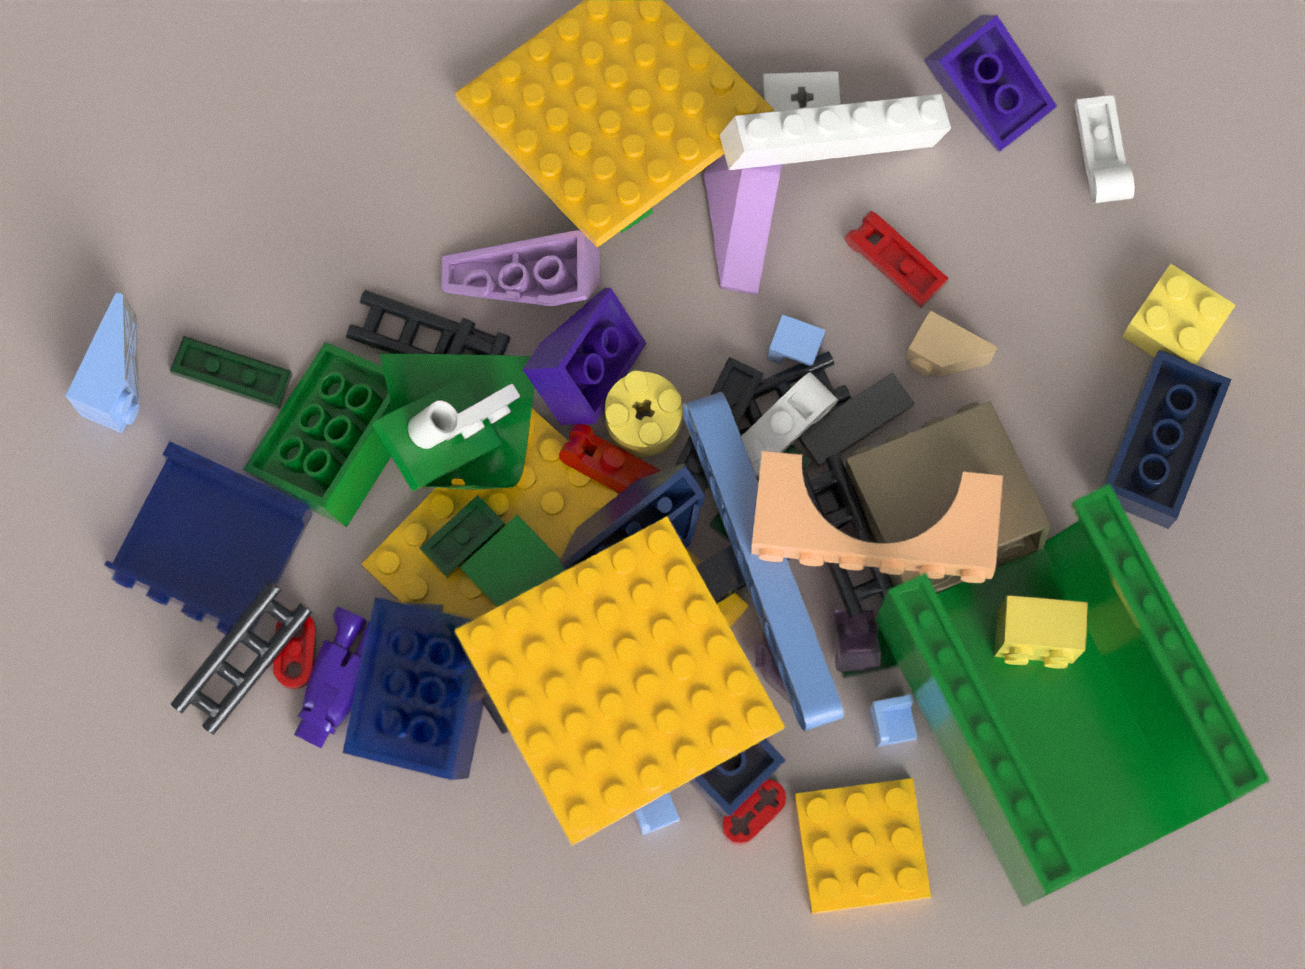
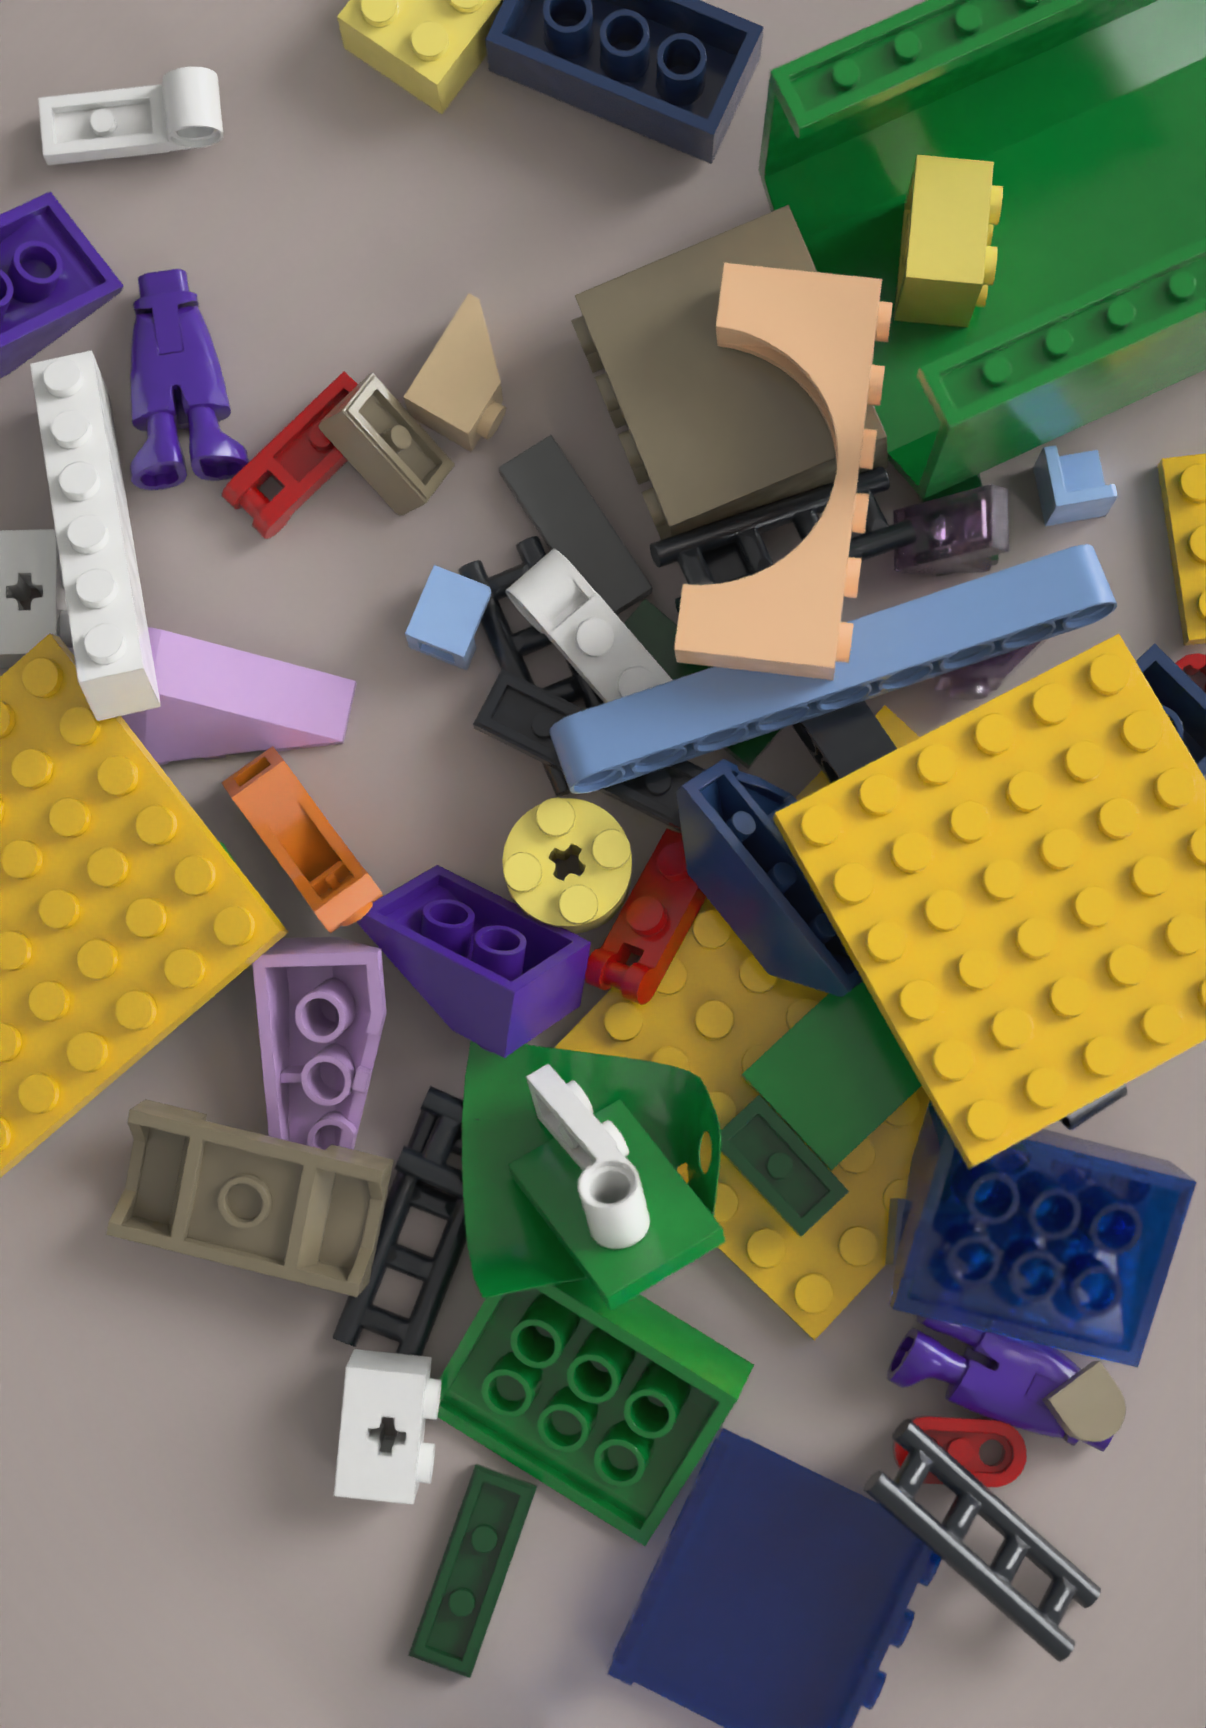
camera: 85 degrees left, 5 degrees up
(312, 316) = (368, 1460): none -> white brick
(319, 718) = (1088, 1404): none -> dark tan tile
(442, 238) = (252, 1199): none -> dark tan piece
(655, 263) = (302, 840): none -> orange arch
(902, 305) = (386, 446): none -> dark tan slope
(936, 182) = (177, 387): none -> dark purple piece

